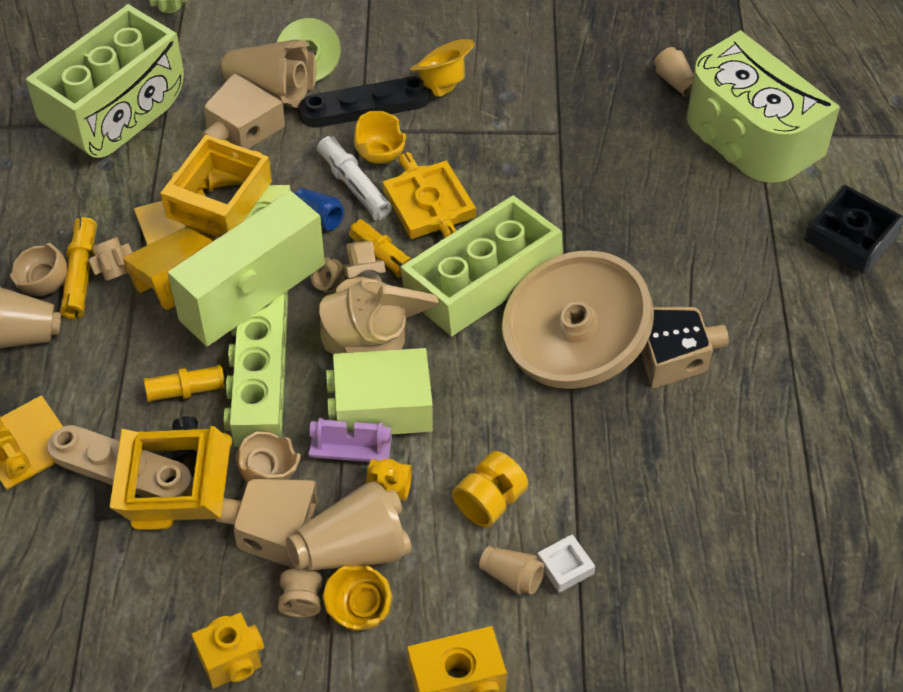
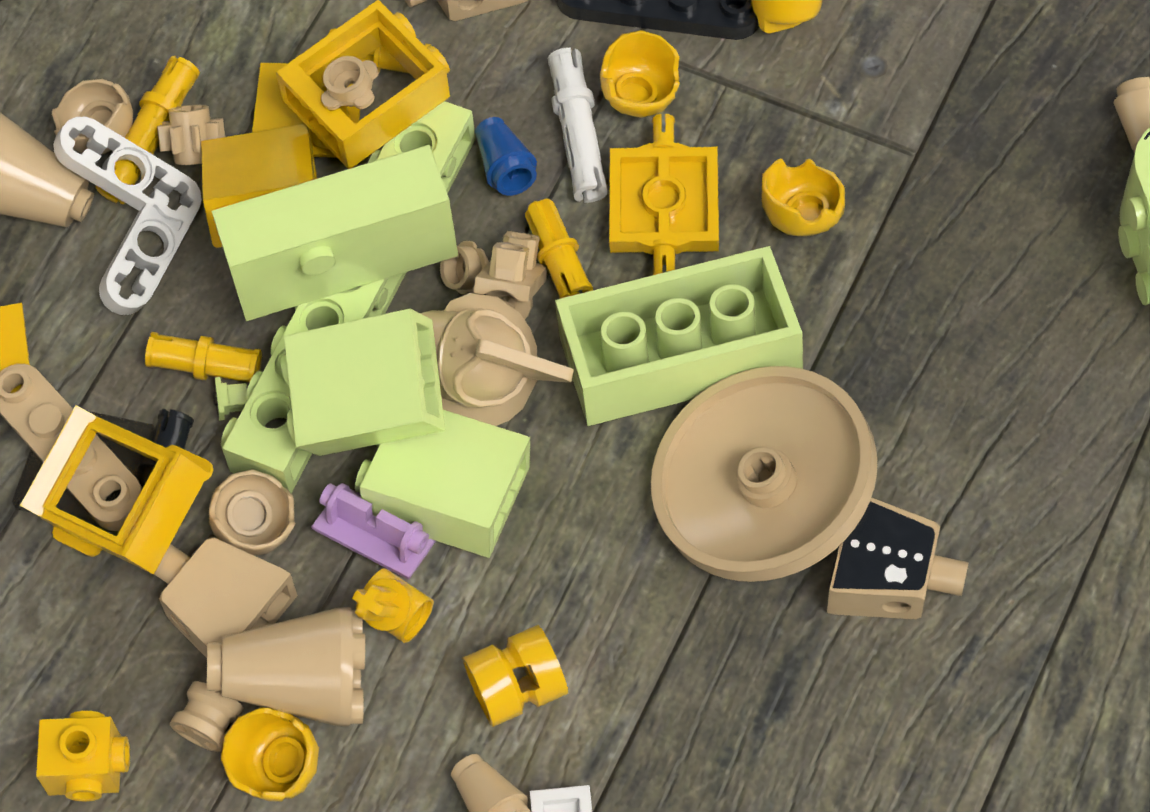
camera: 30 degrees right, 10 degrees up
(106, 309) = (153, 209): none -> white beam
(212, 402) = (229, 397): none -> yellowish green piece
(213, 181) = (340, 75): none -> tan plate
(309, 346) = (363, 383): none -> yellowish green brick
(512, 171) = (802, 198): none -> yellow hair

